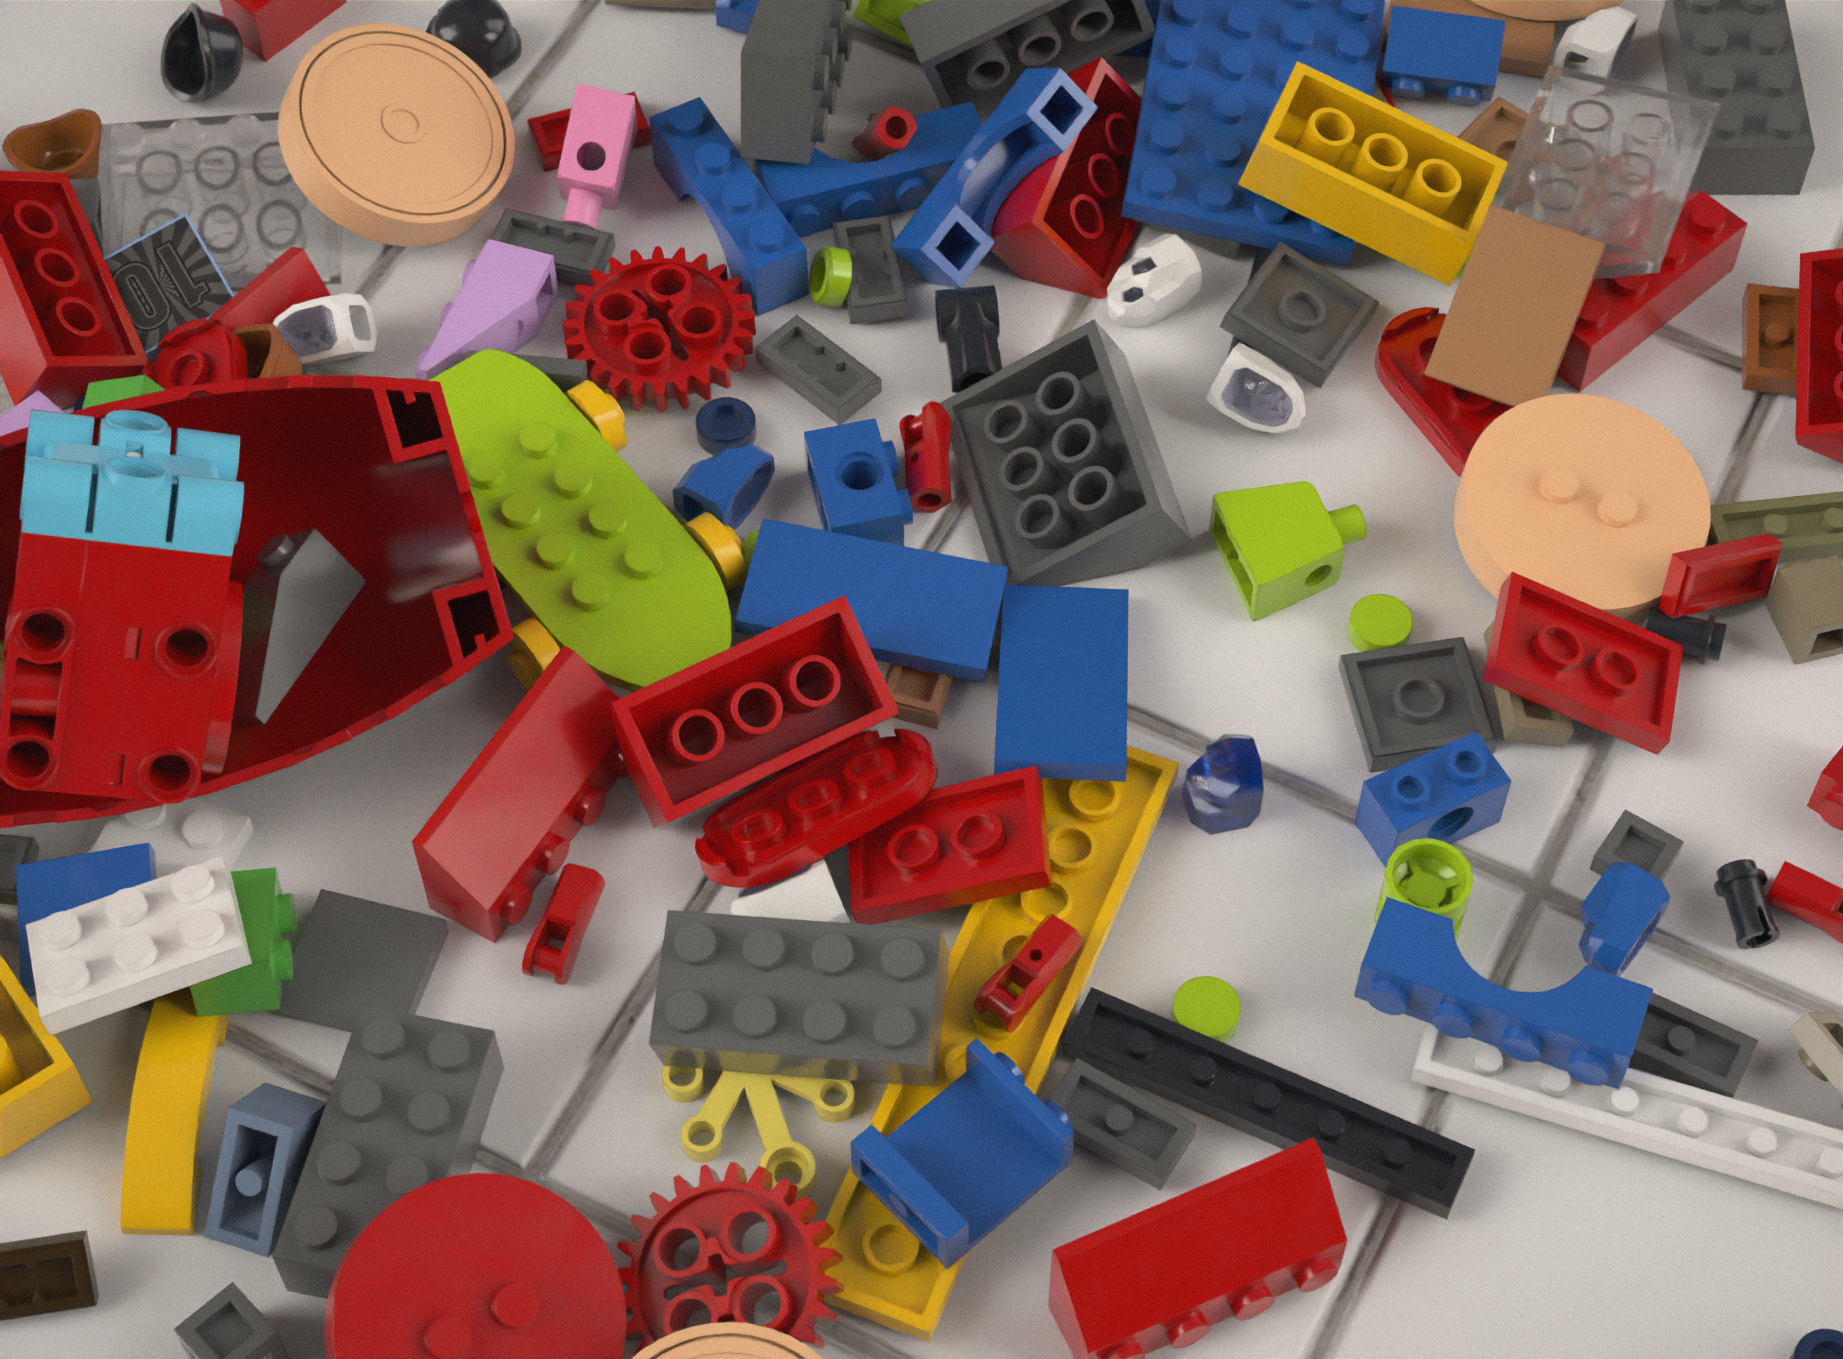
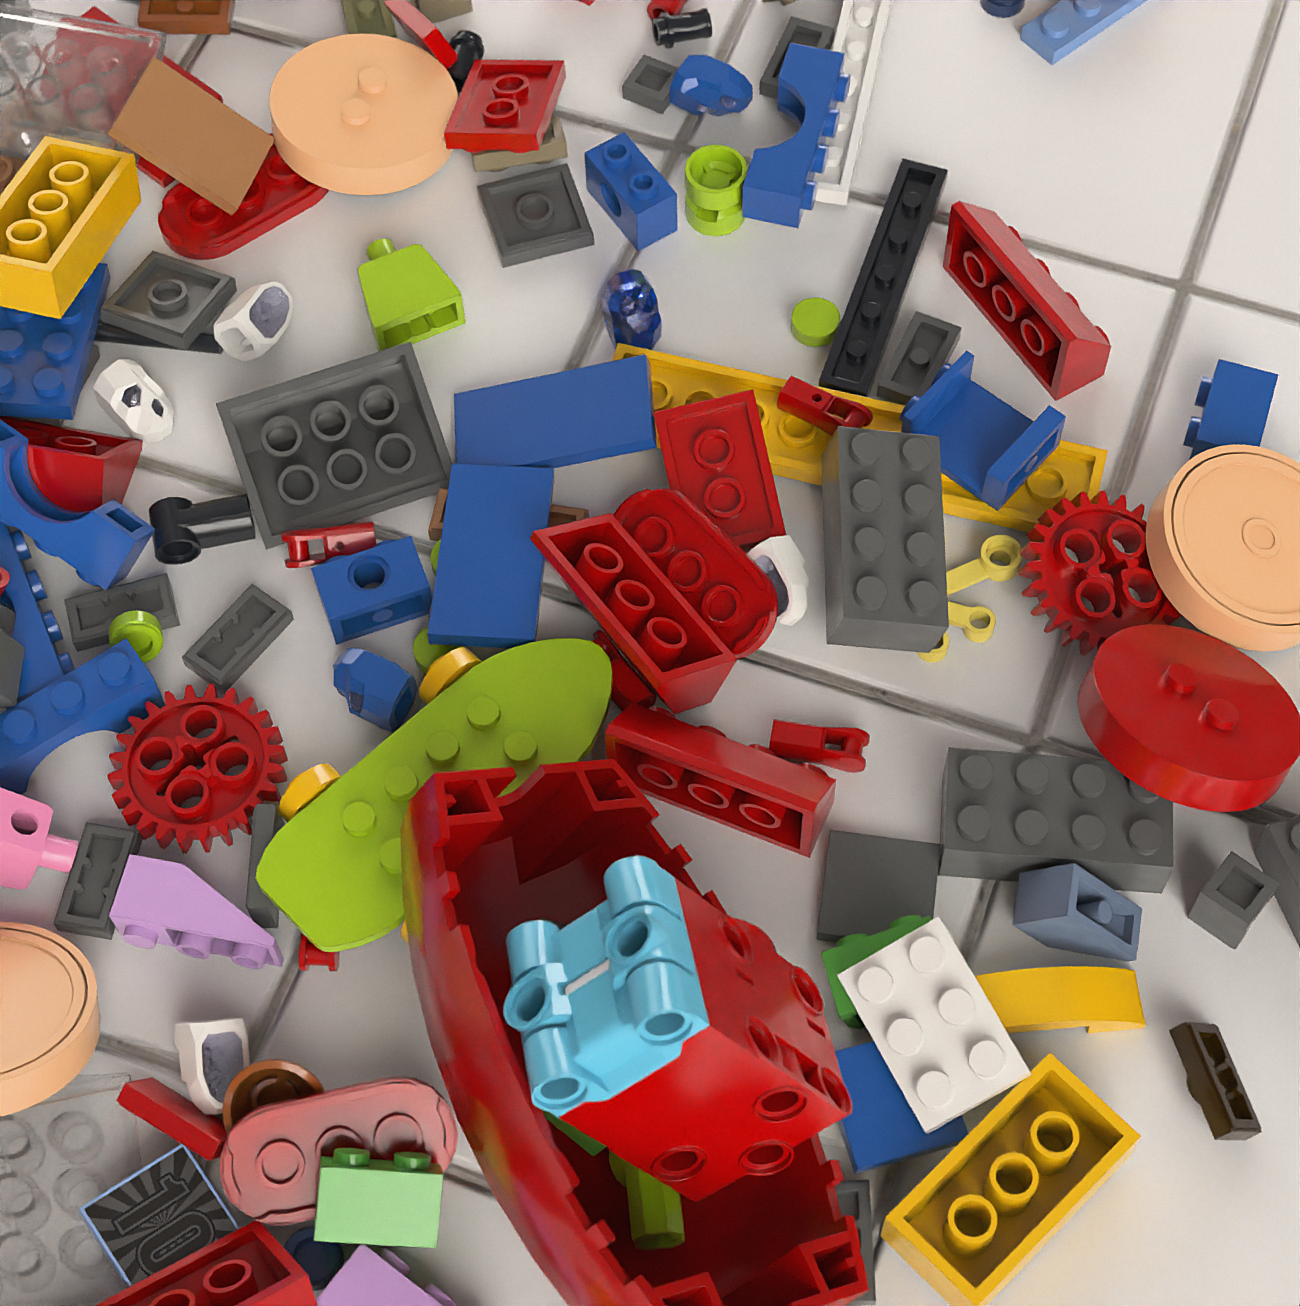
camera: 95 degrees left, 5 degrees up
(725, 424) = (299, 707): dark blue tile -> none
(1379, 623) = (468, 238): lime tile -> none

